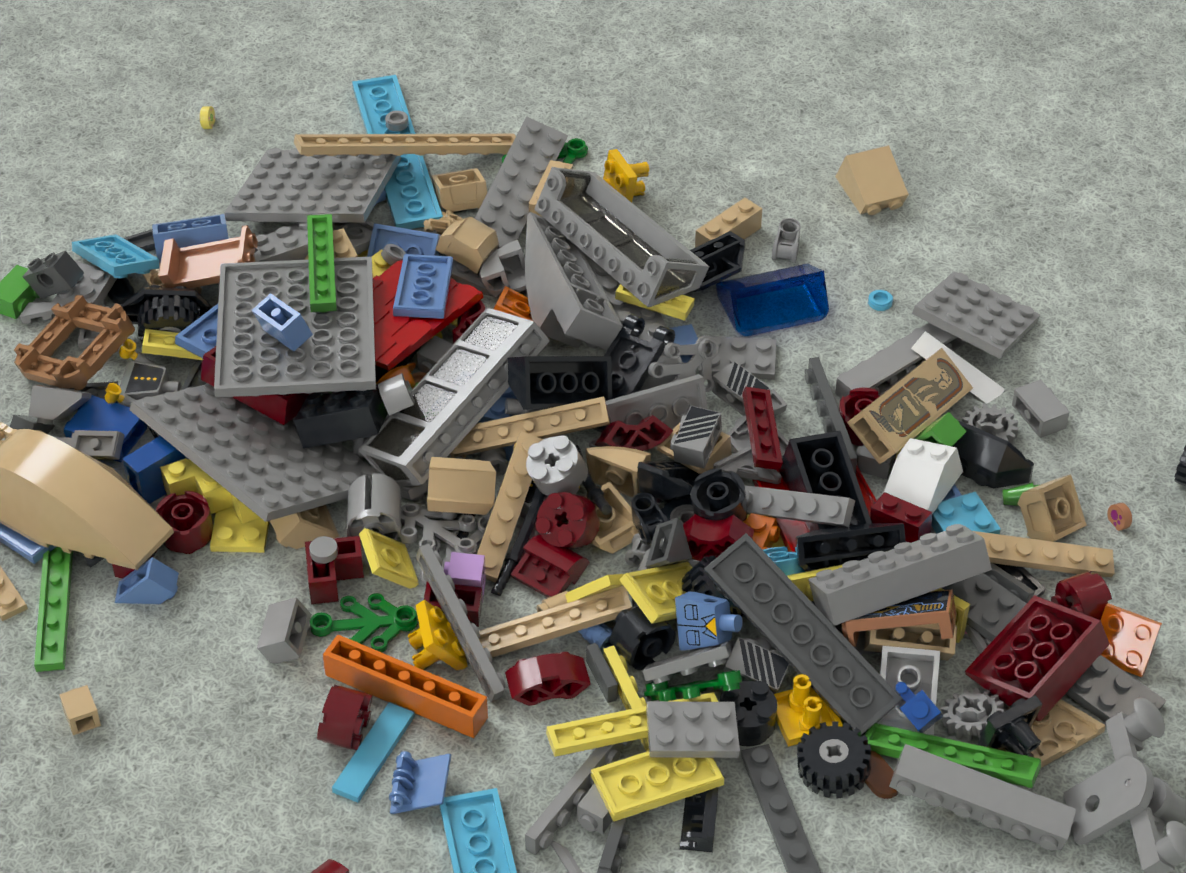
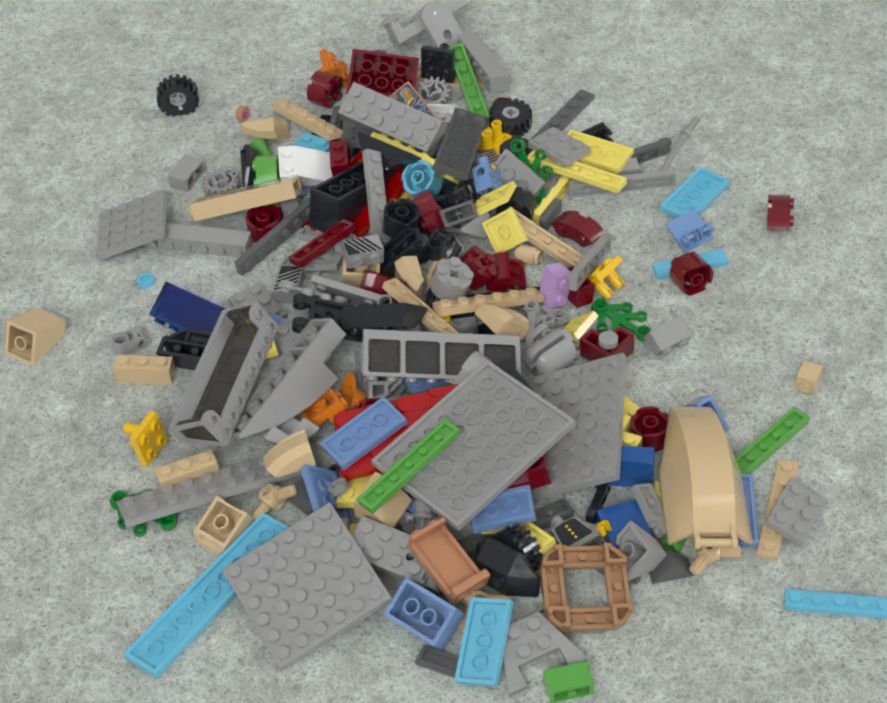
camera: 125 degrees left, 0 degrees up
(53, 274) = (543, 646): dark grey brick -> none
(282, 322) = (494, 419): medium blue brick -> none
(396, 120) = (183, 606): light grey tile -> none
(402, 144) = (221, 556): tan plate -> none
(406, 686) = (645, 269): orange brick -> none
(918, 708) = (455, 99): blue brick -> none
(982, 385) = (182, 216): white sticker -> none

